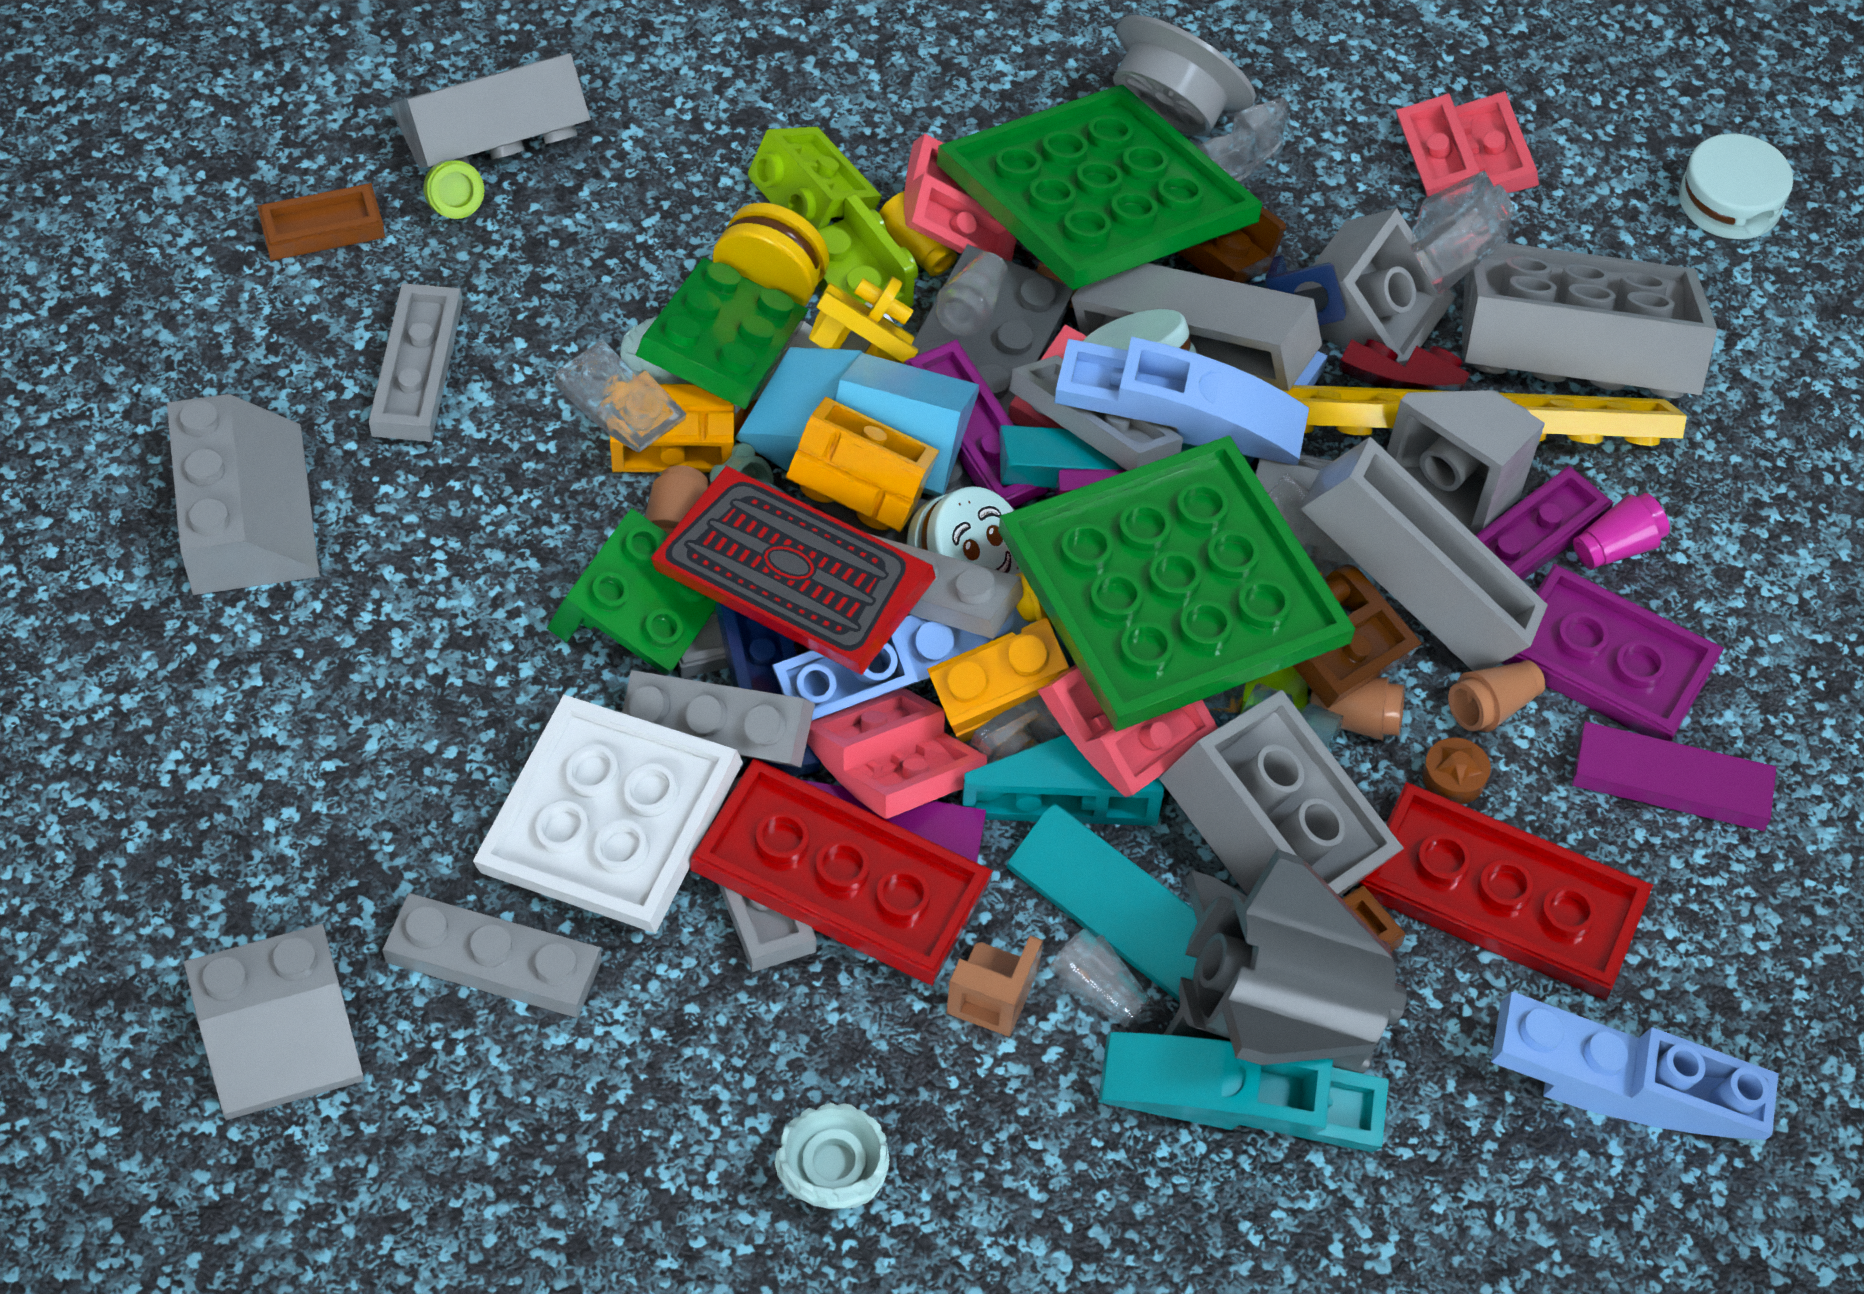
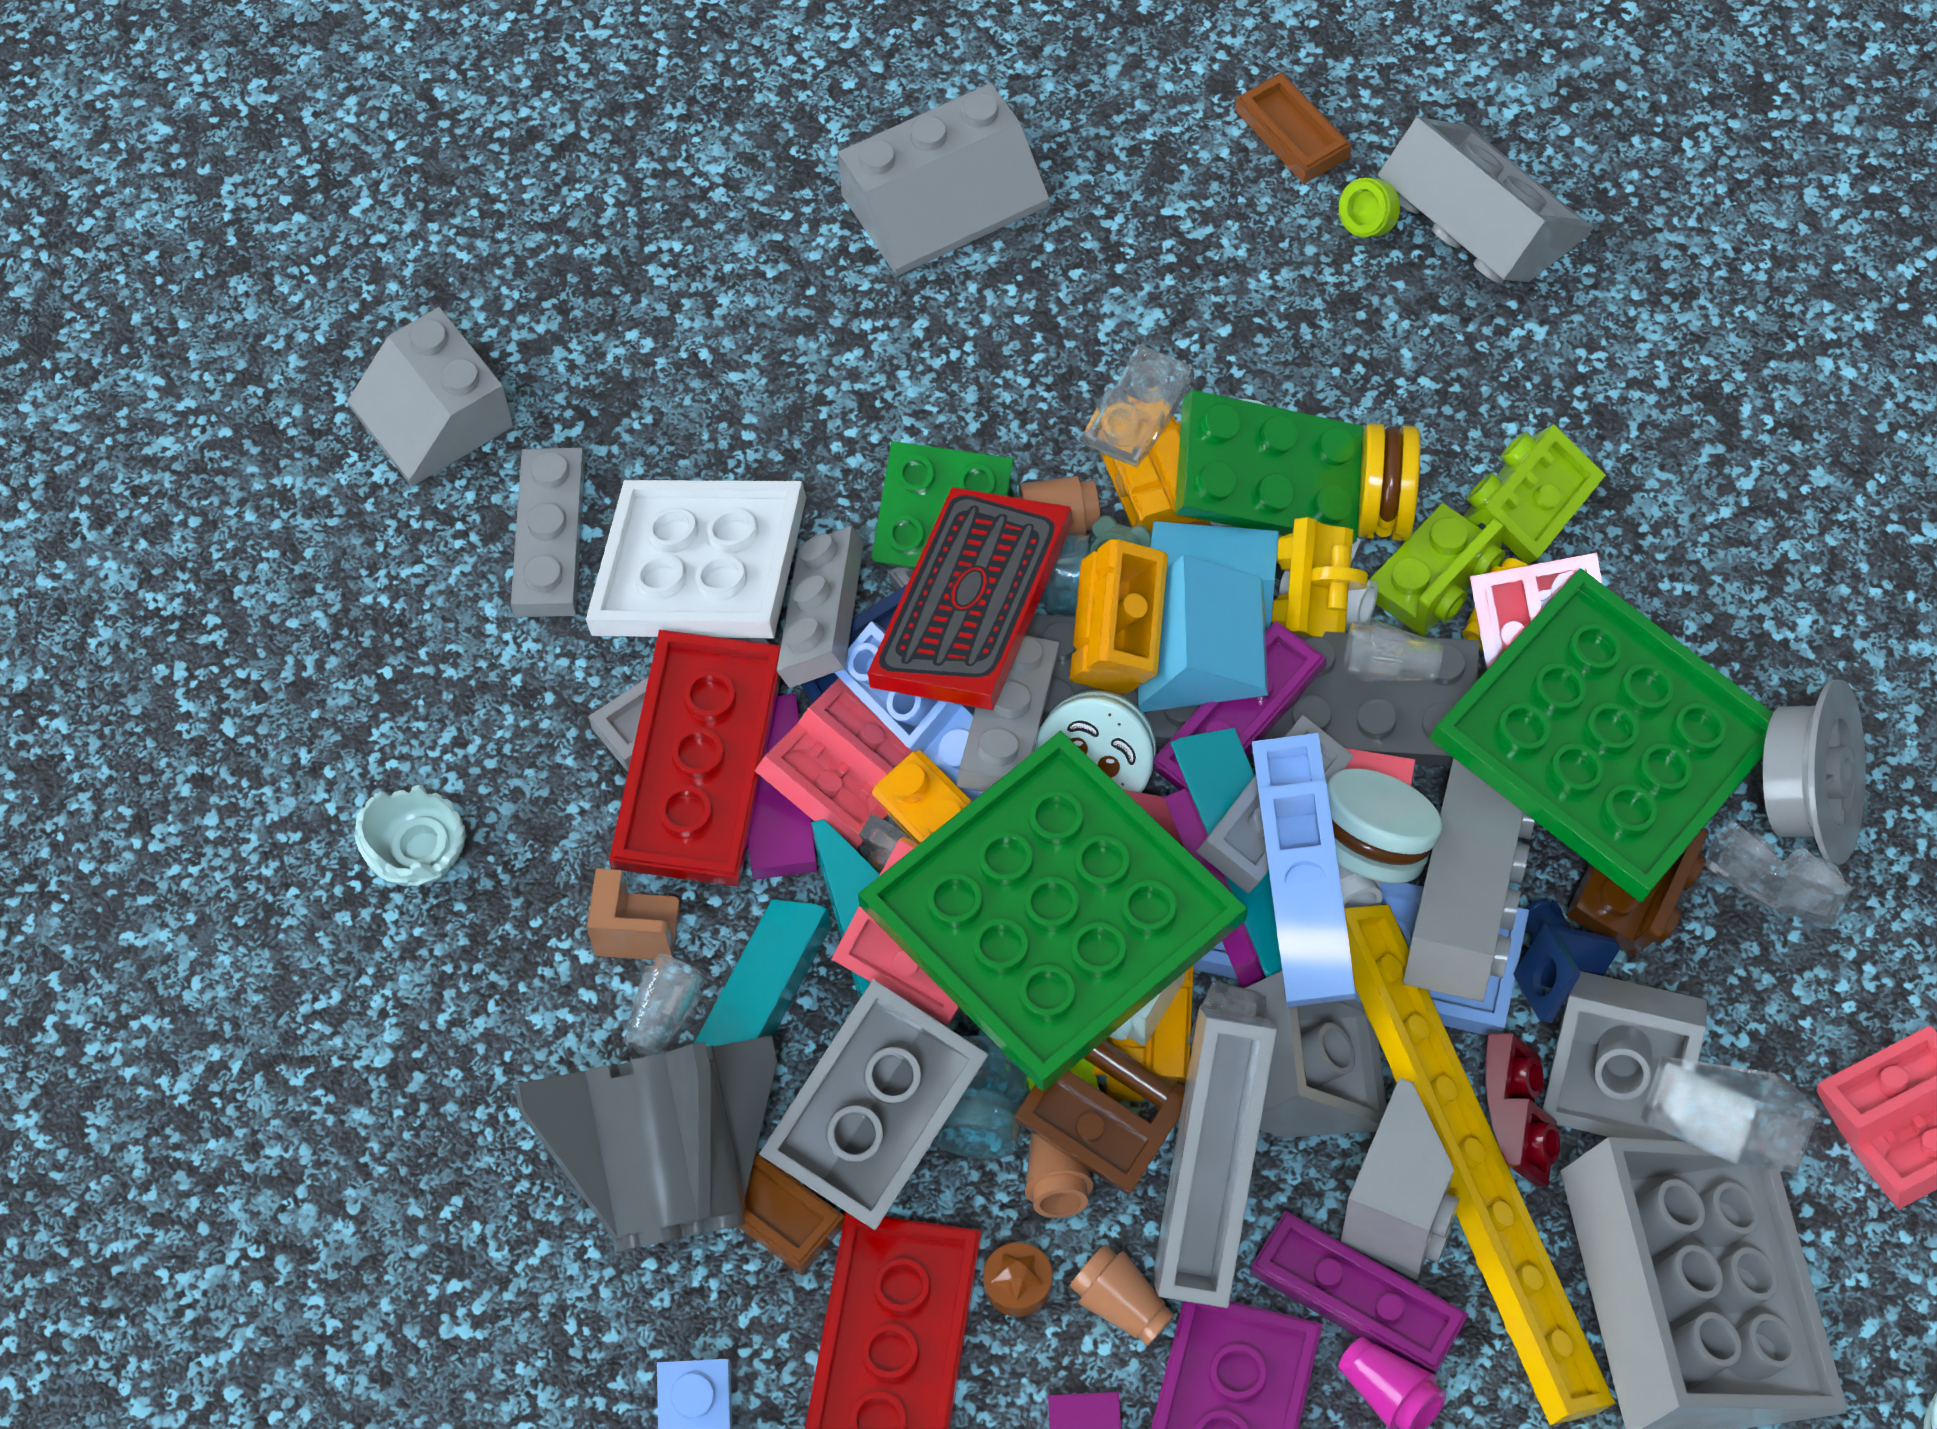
camera: 80 degrees right, 5 degrees up
(416, 362) = (1150, 253): light grey plate -> none
(1210, 1086) = (574, 1238): teal slope -> none

